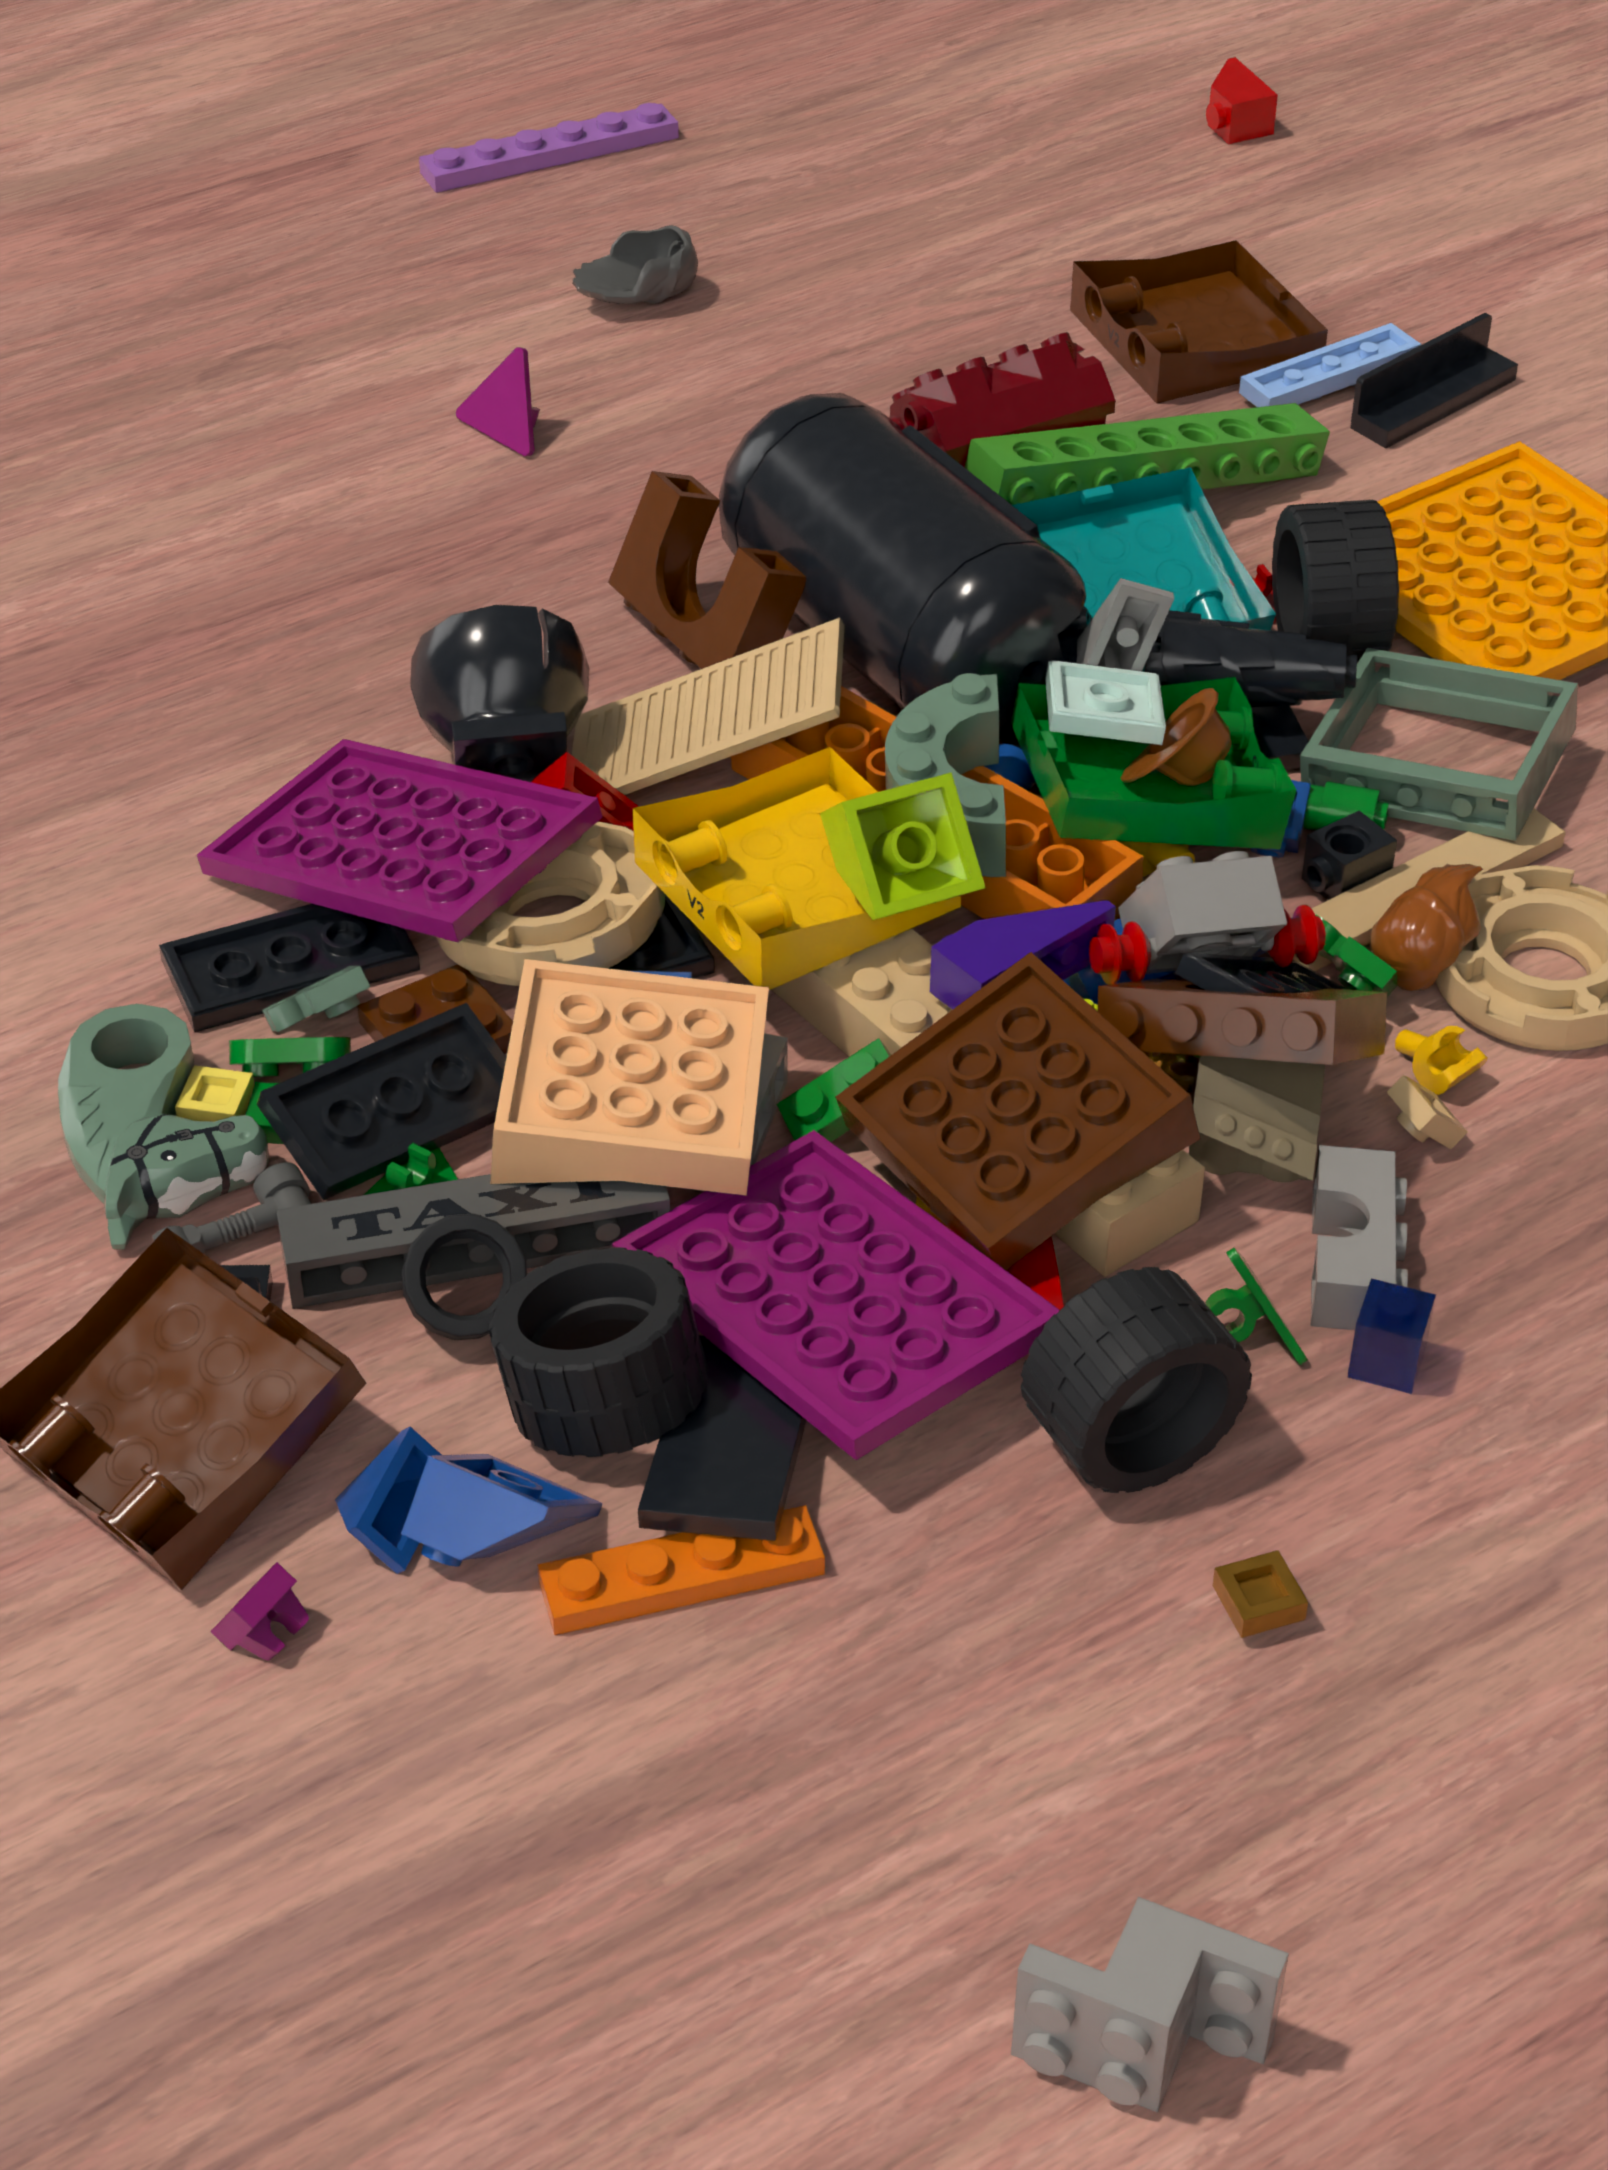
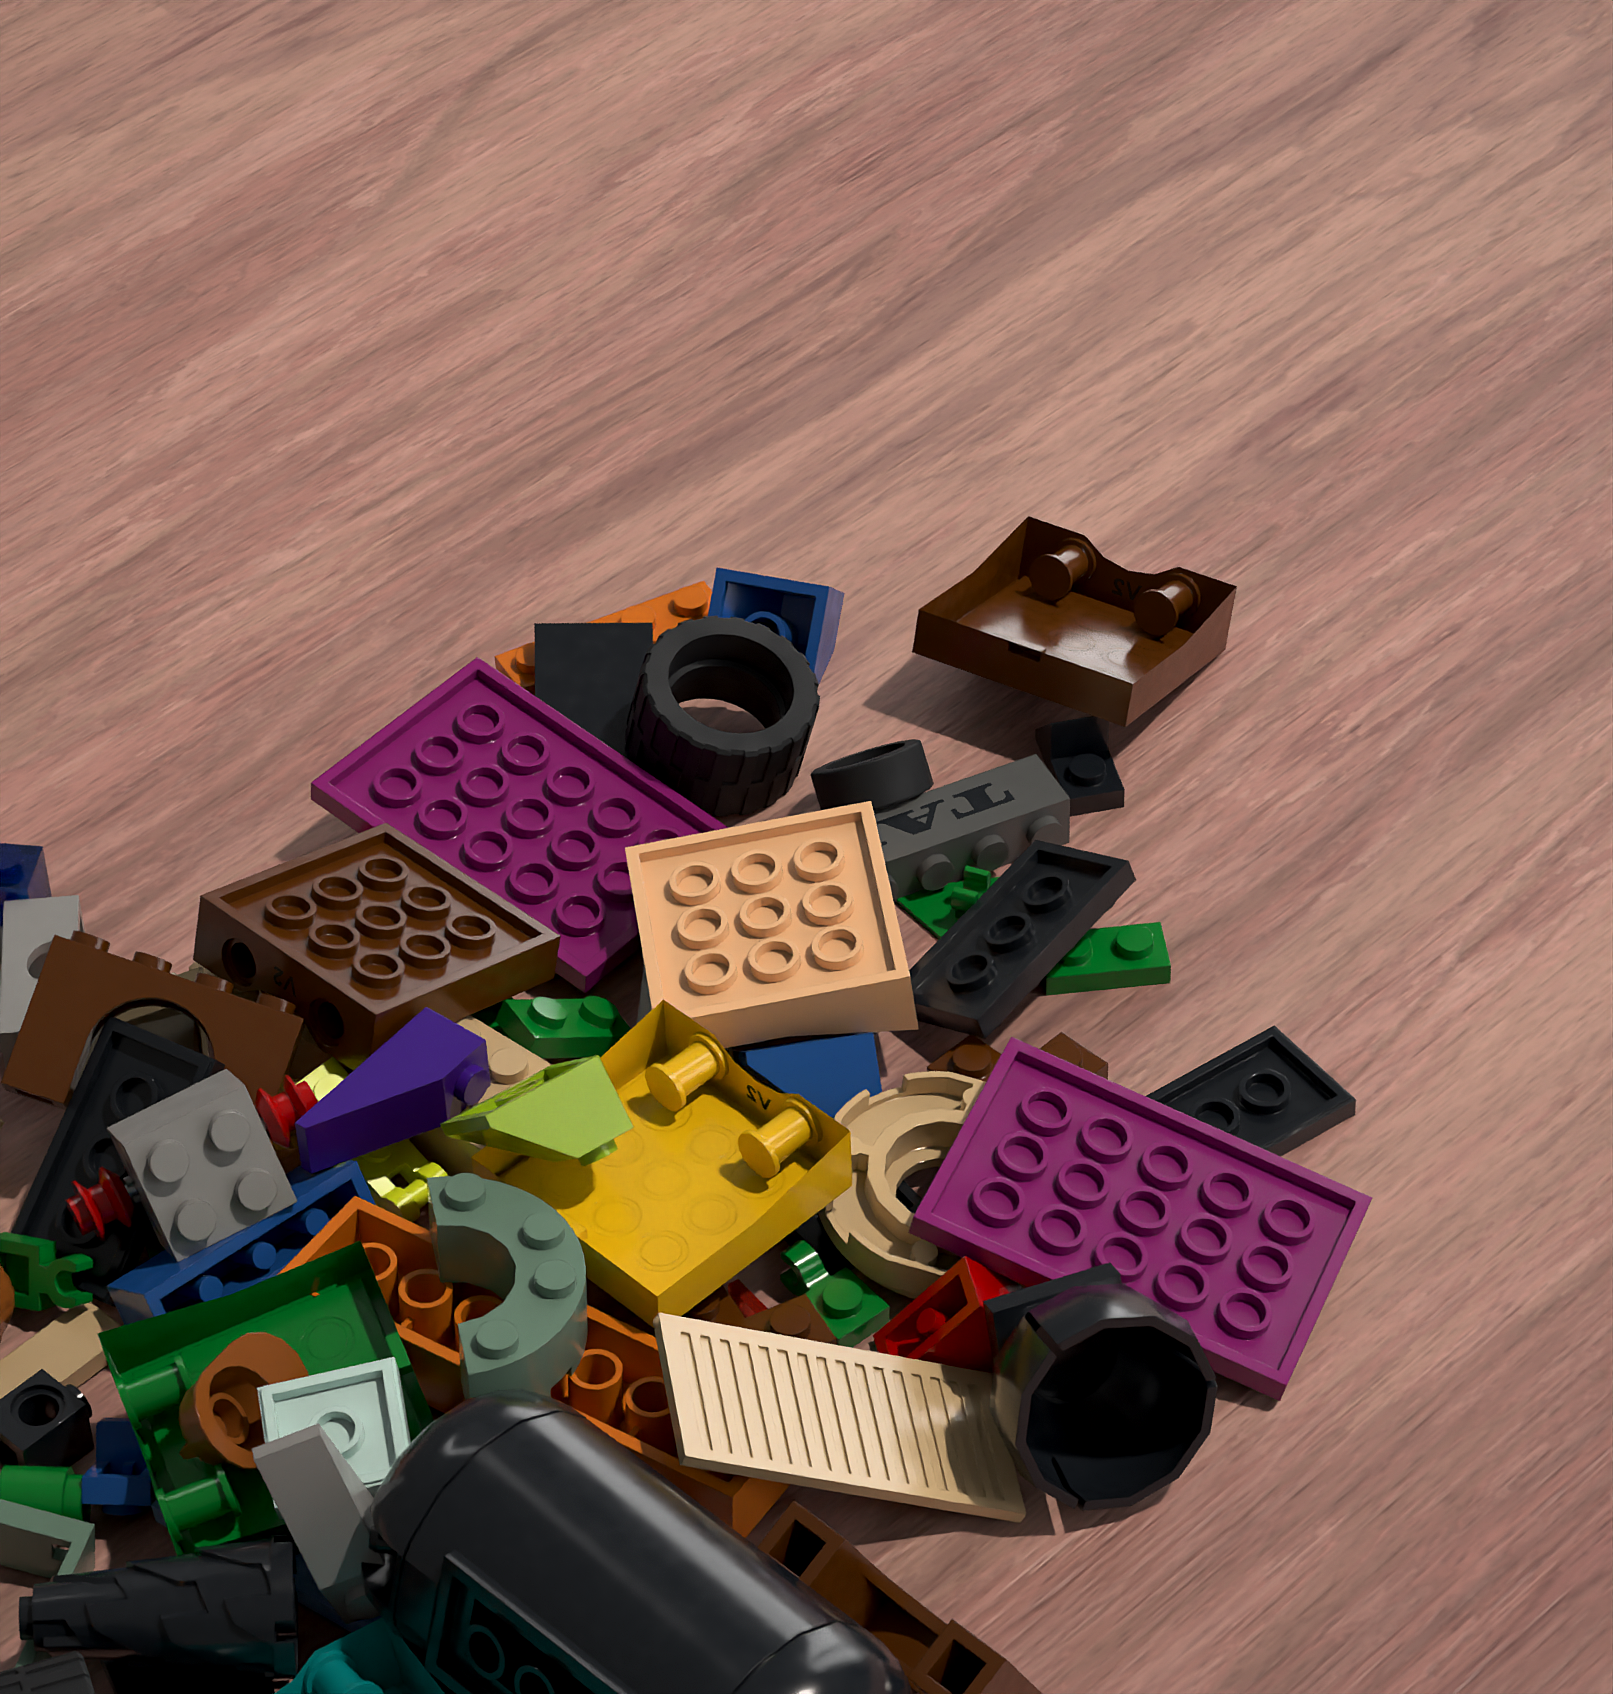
camera: 170 degrees right, 0 degrees up
(126, 1126) = (1277, 898): sand green animal -> none
(214, 1094) = (1201, 941): light yellow plate -> none
(251, 1616) = (939, 542): magenta tile -> none
(265, 1055) = (1148, 995): green plate -> none
(275, 1188) = (1150, 811): dark grey brick -> none
(332, 994) = (1148, 1054): sand green plate -> none
(381, 1497) = (871, 641): blue slope -> none
(1134, 2019) = (201, 390): light grey bracket -> none
(1135, 1379) = (208, 714): black tyre -> none
(1253, 1304) = (136, 900): green piece -> none
(1260, 1593) = (129, 687): pearl gold plate -> none

